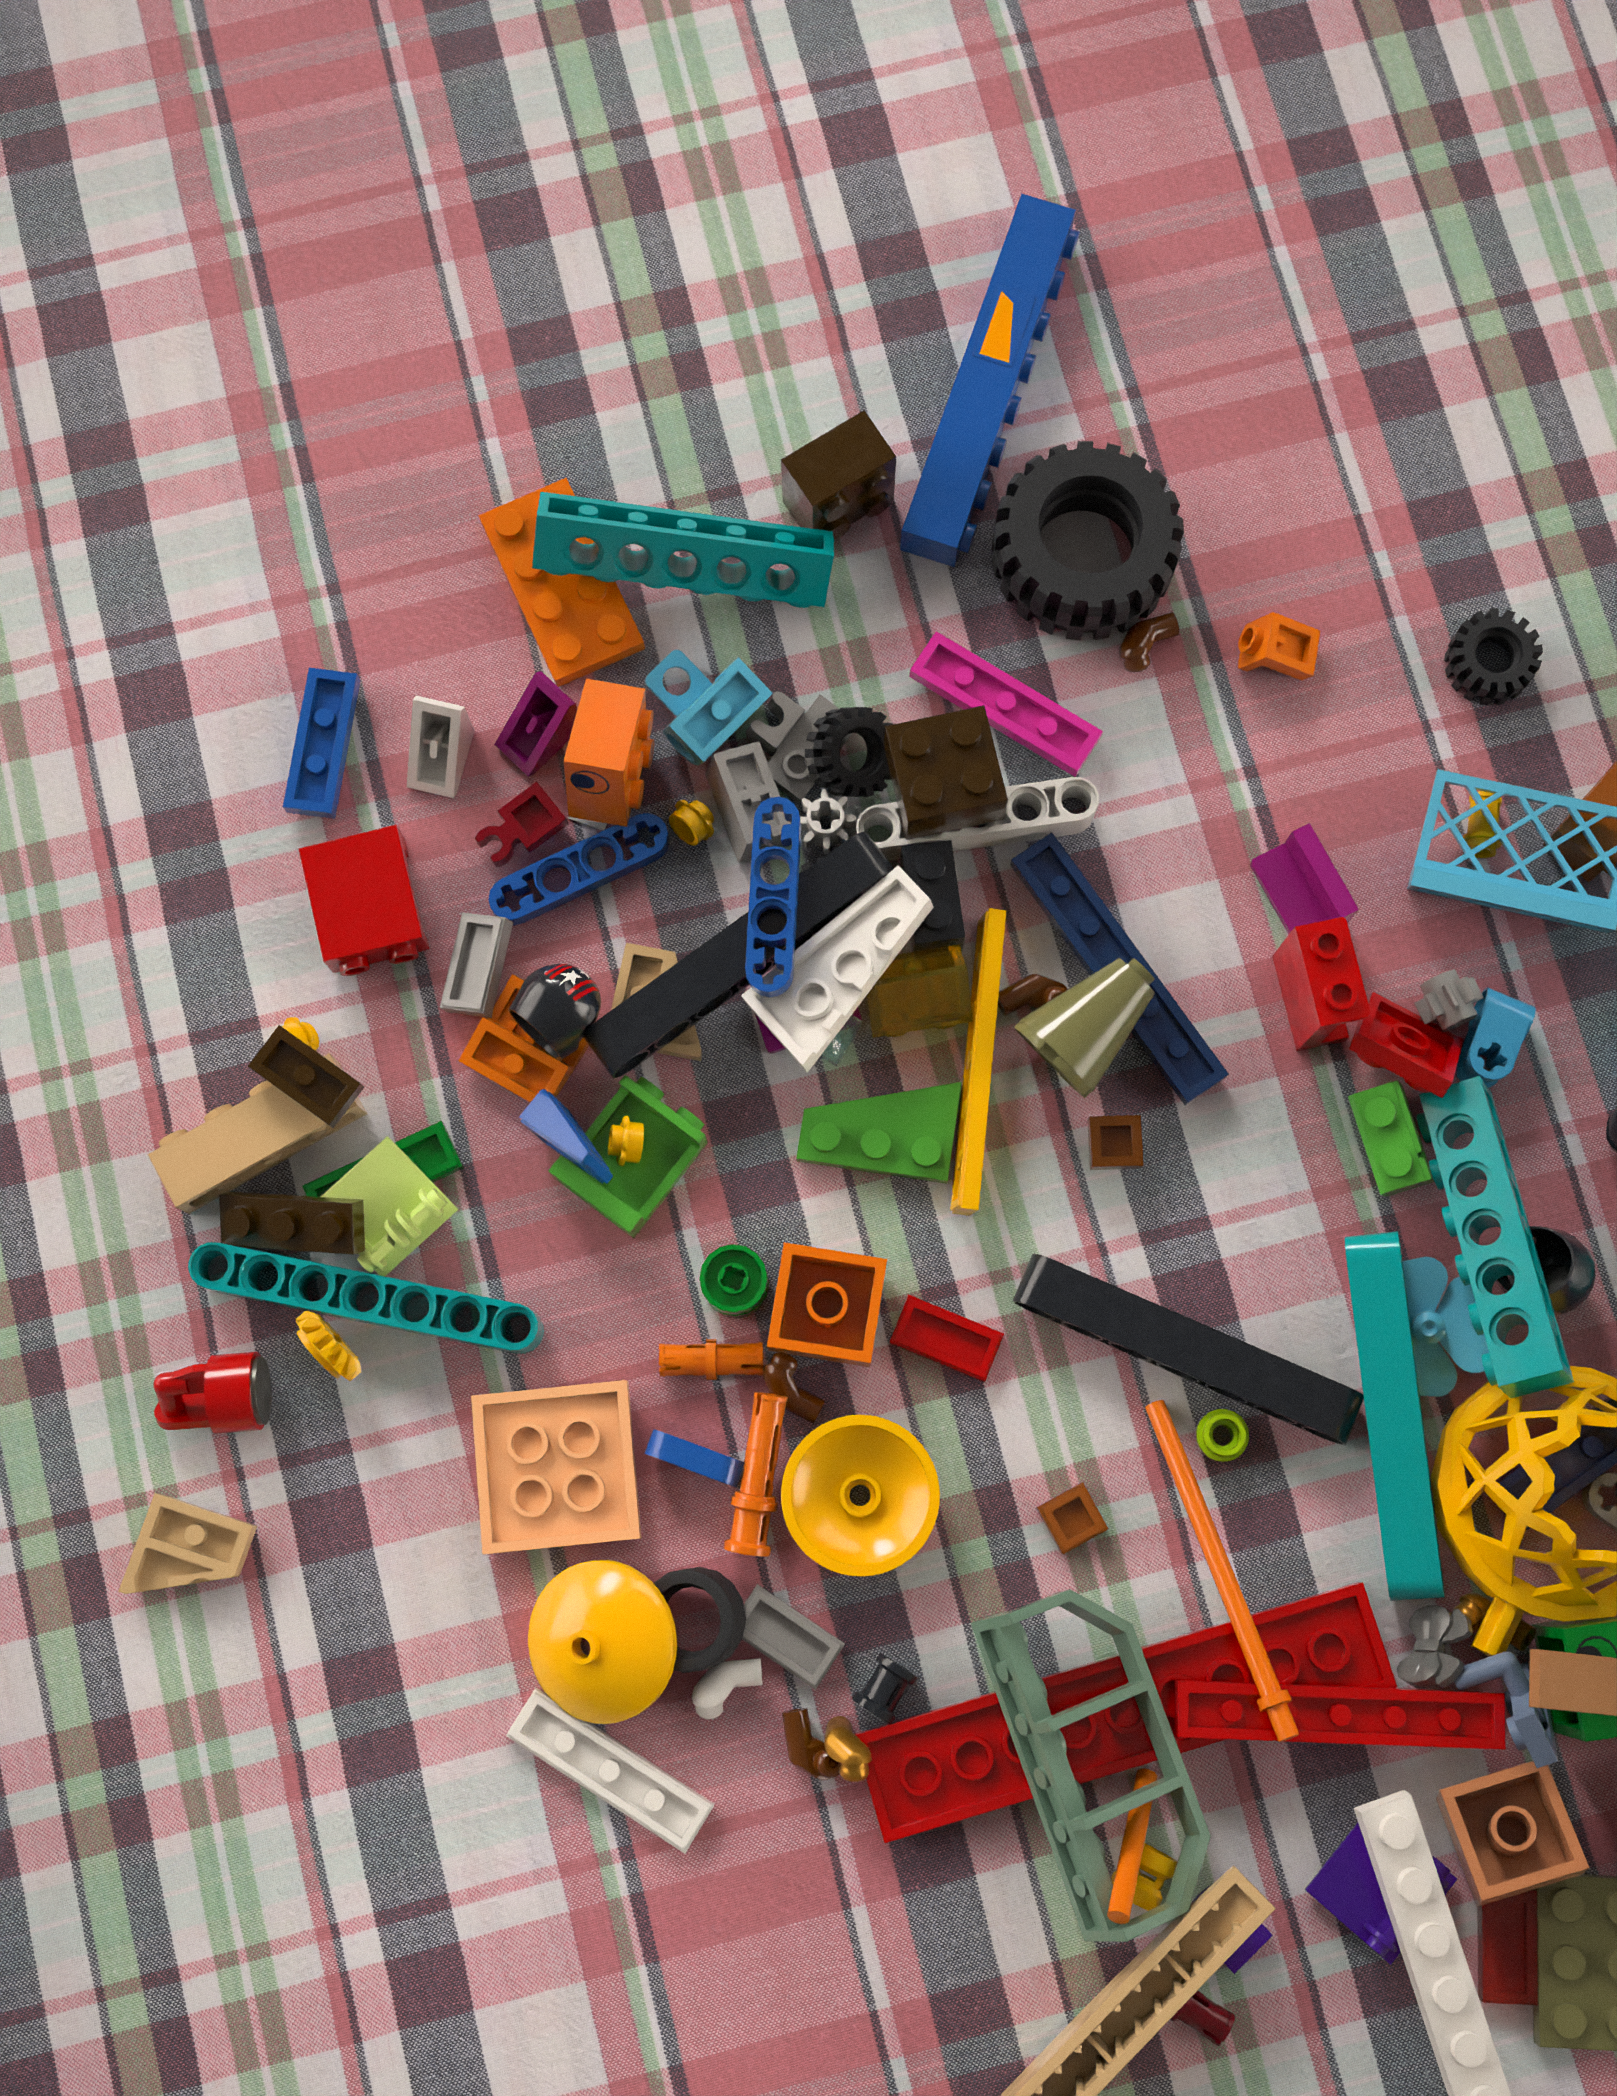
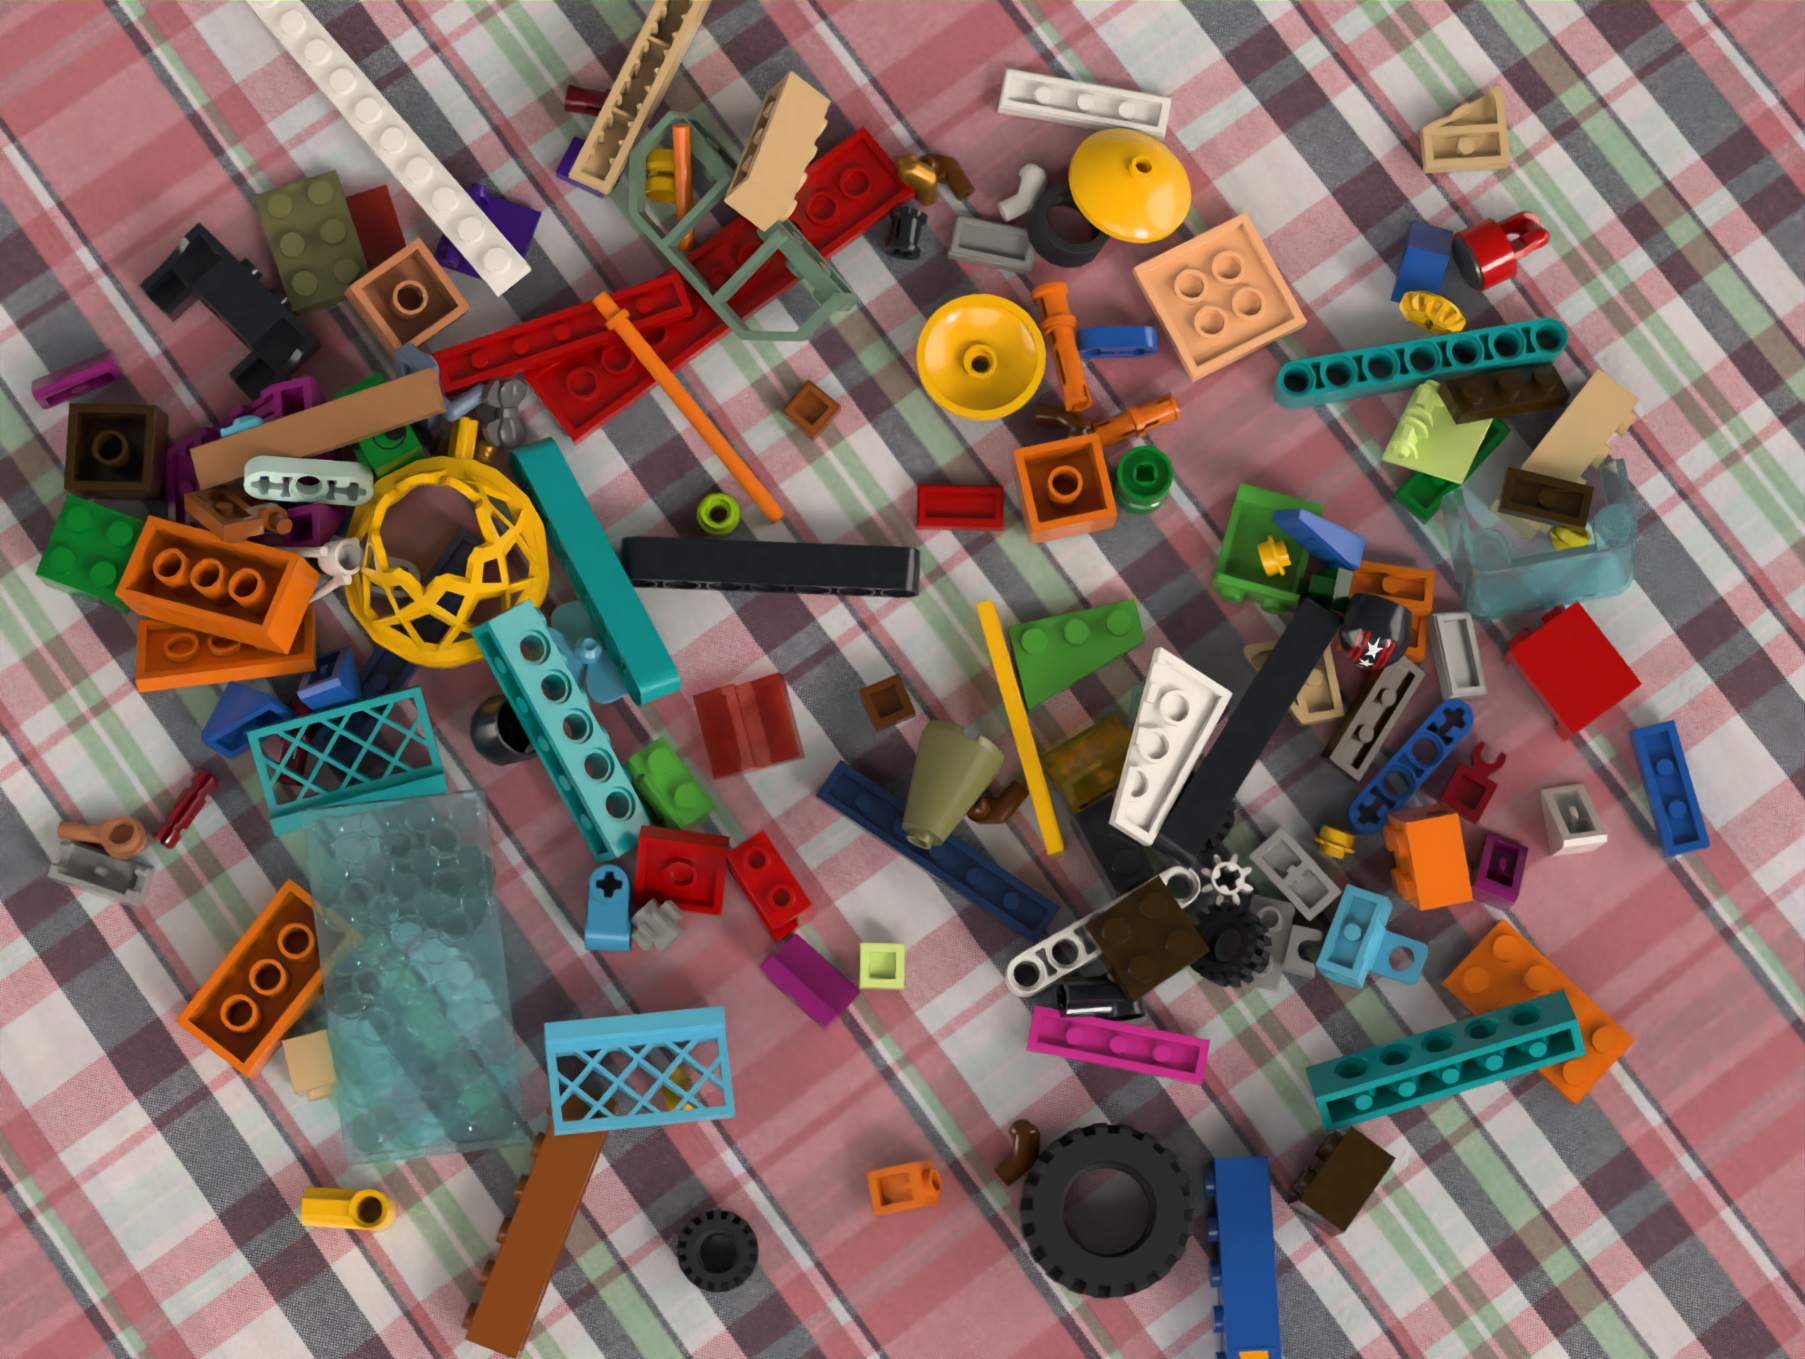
camera: 150 degrees right, 0 degrees up
(307, 1417) = (1422, 260): none -> blue slope
(401, 1018) = (1500, 587): none -> clear light blue windscreen
(584, 1082) = (1328, 588): none -> dark green tile
(600, 927) = (1372, 718): none -> plate
(769, 896) = (1246, 774): blue beam -> none
(1008, 1838) = (778, 152): none -> tan brick
(1024, 754) = (1095, 997): none -> black piece
(1221, 873) = (882, 966): none -> yellowish green plate
(1271, 1182) = (748, 726): none -> clear red slope

